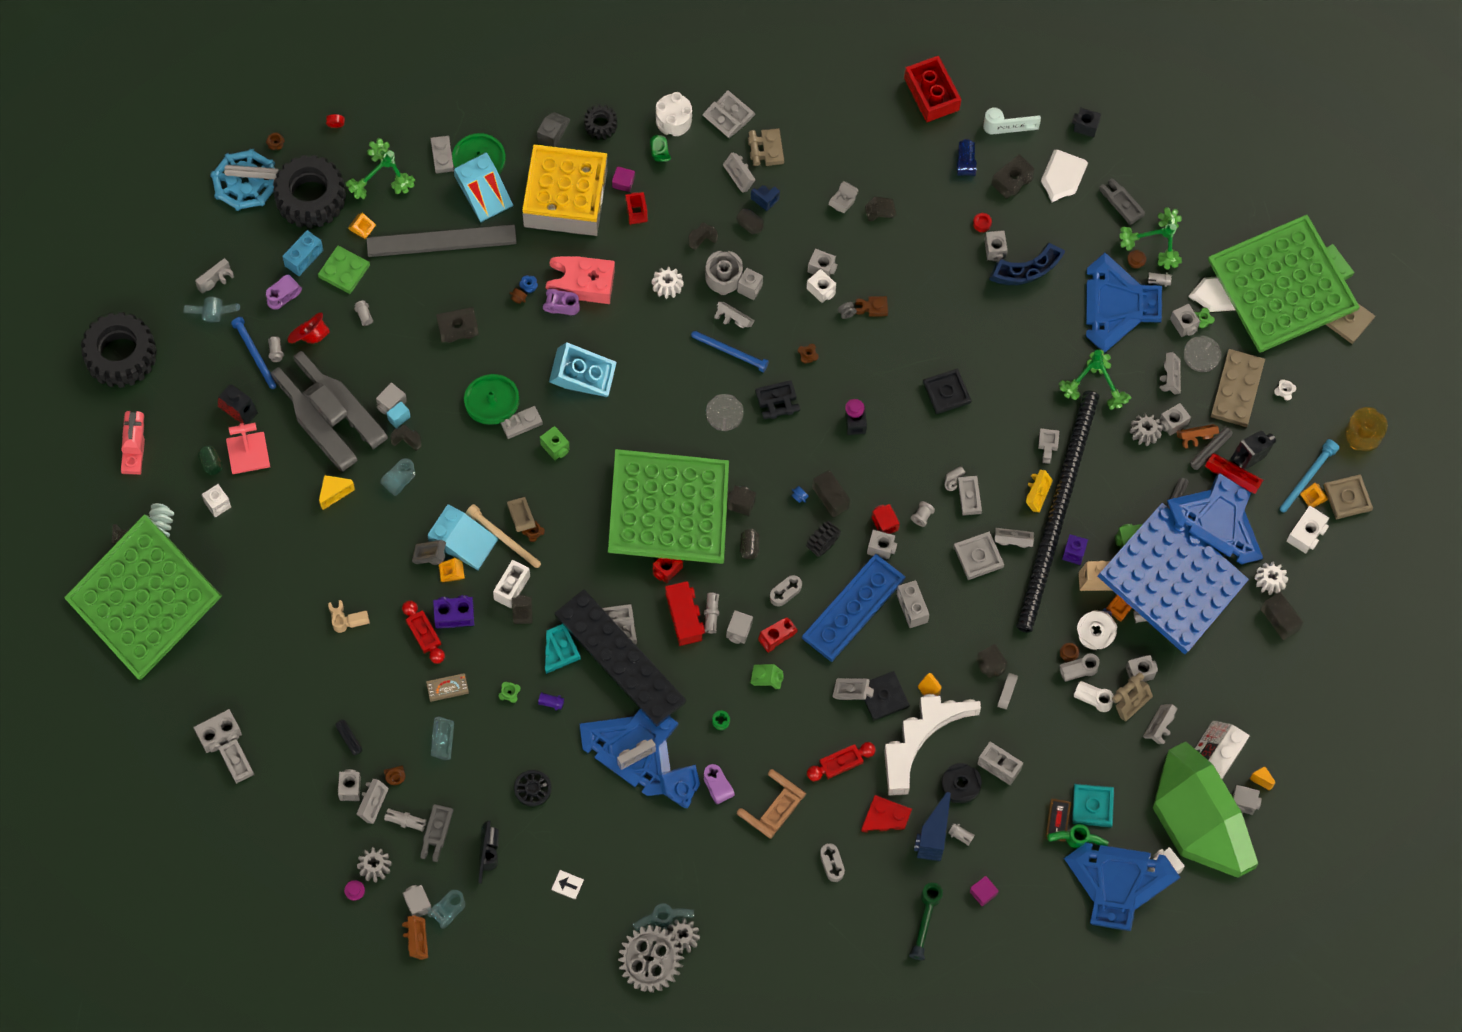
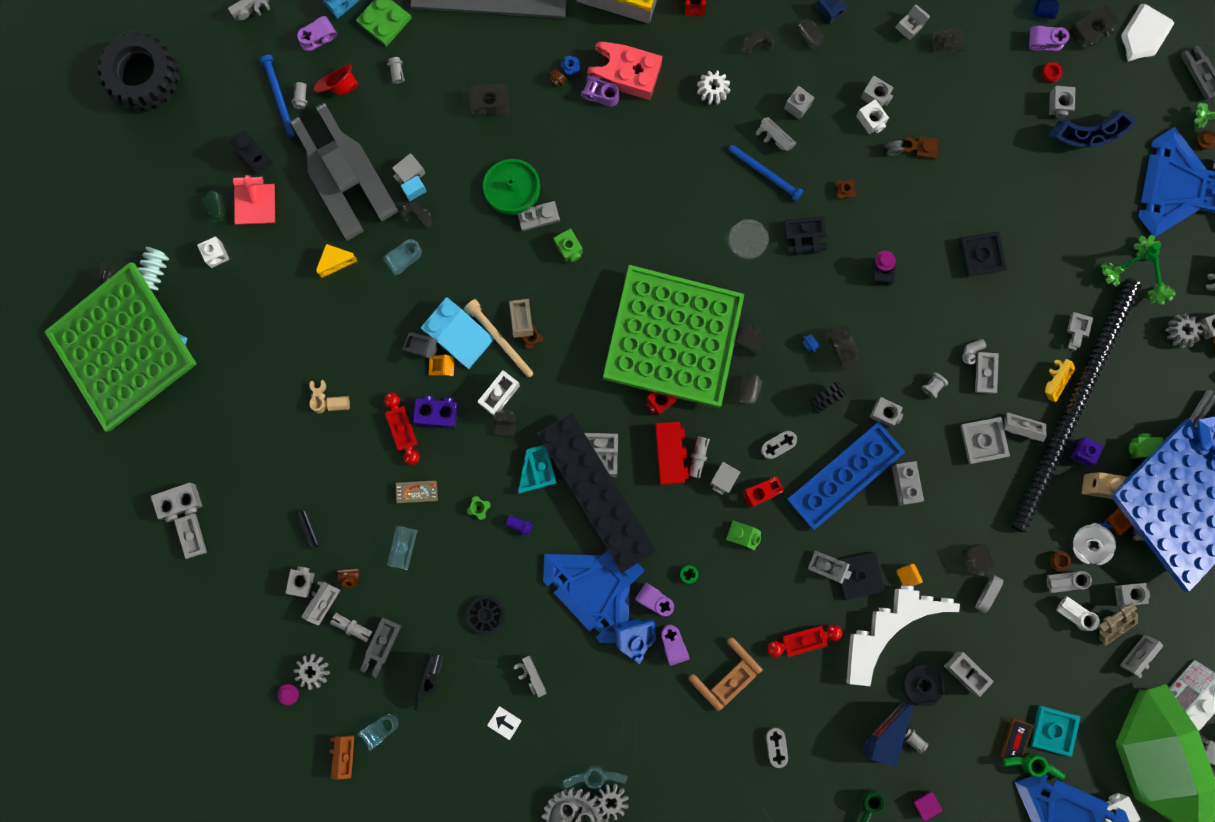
camera: 10 degrees right, 15 degrees up
(132, 443) = (138, 175): coral plate -> none
(212, 309) = (241, 41): clear light blue piece -> none
(417, 900) = (348, 718): light grey brick -> none
(582, 370) = (609, 170): medium azure slope -> none
(583, 827) = (536, 684): none -> light grey plate
(641, 751) = (587, 602): light grey plate -> none
(691, 746) = (651, 598): none -> medium lavender piece
(723, 272) = (778, 76): light grey brick -> none
(885, 519) = (894, 385): red brick -> none
(886, 815) = (840, 706): red wing -> none
(971, 194) = (1047, 38): none -> medium lavender piece

